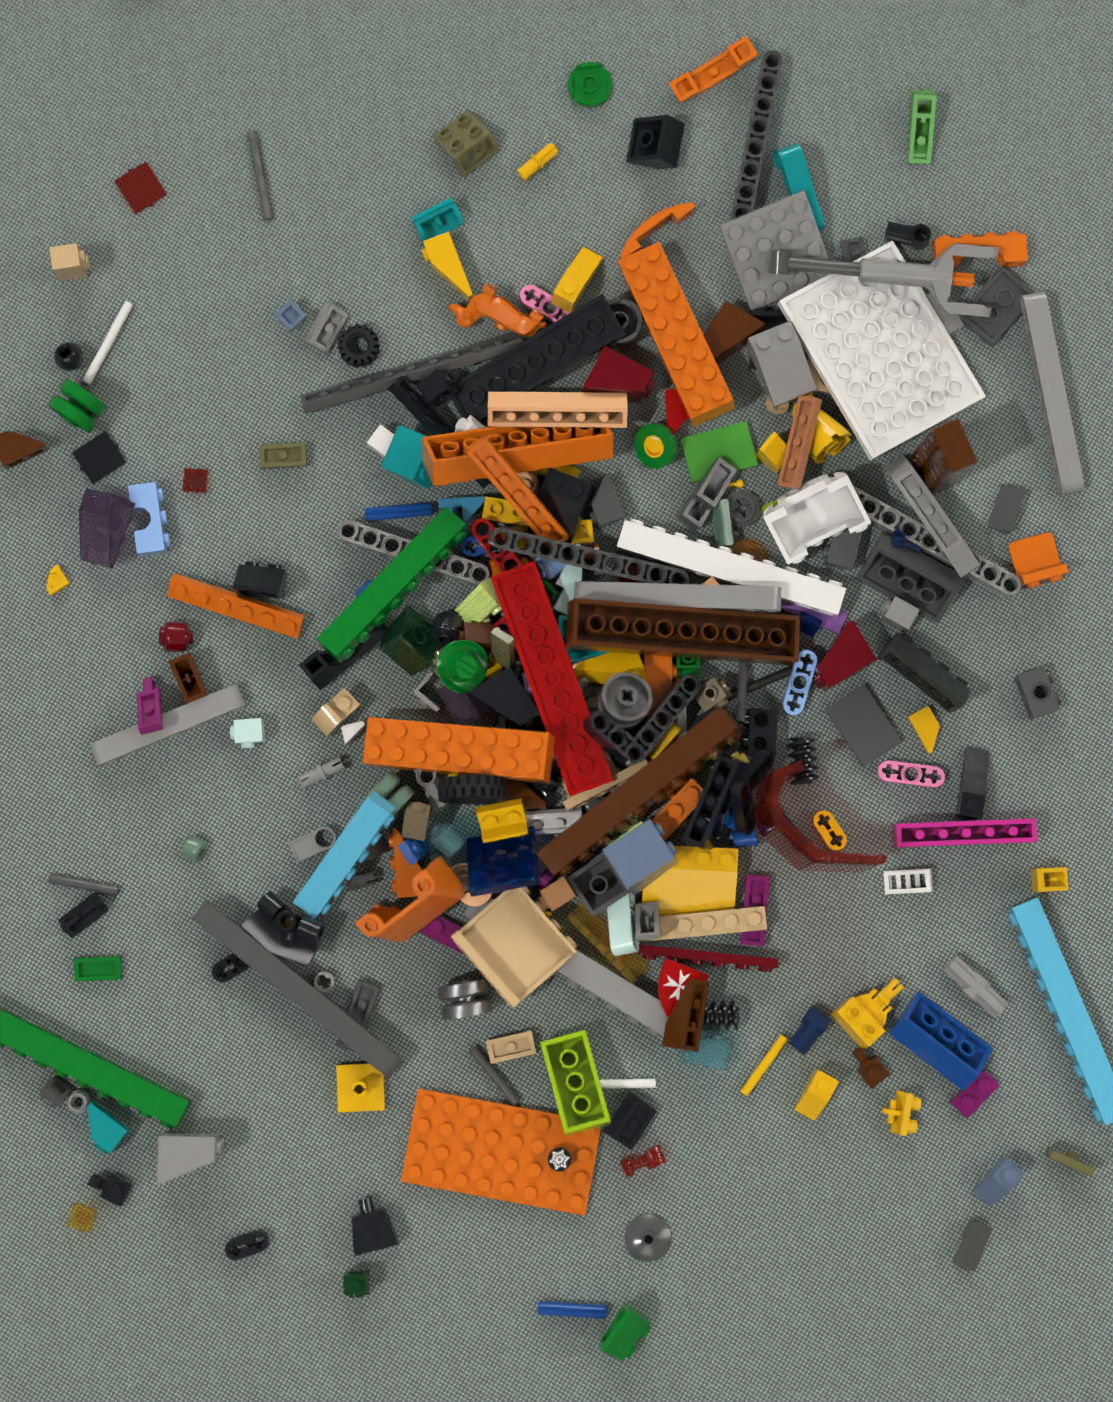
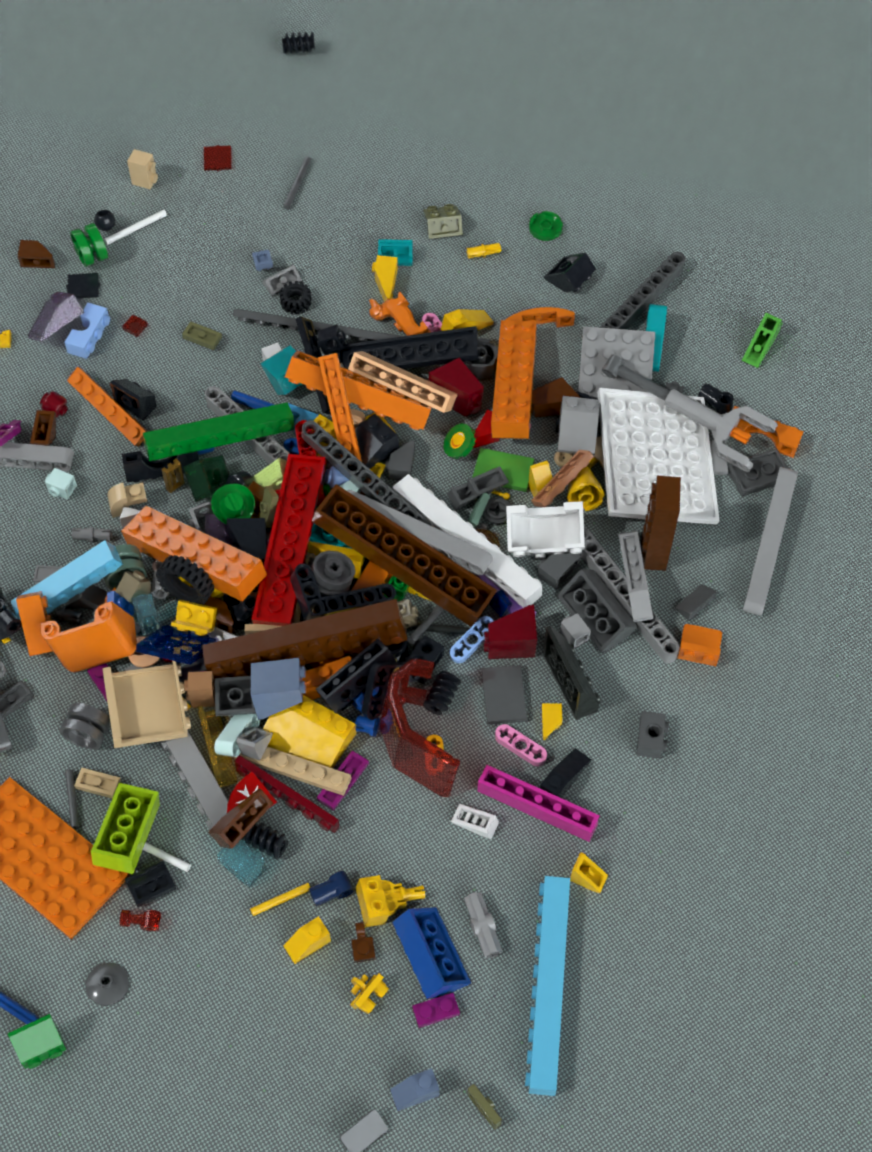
camera: 30 degrees right, 25 degrees down
(338, 914) = (33, 613): none -> orange brick
(371, 660) = (170, 478): none -> pearl gold tile
(559, 1159) = (77, 880): tile -> none
(714, 71) = (634, 253): orange slope -> none
(898, 541) = (600, 576): dark blue hand -> none

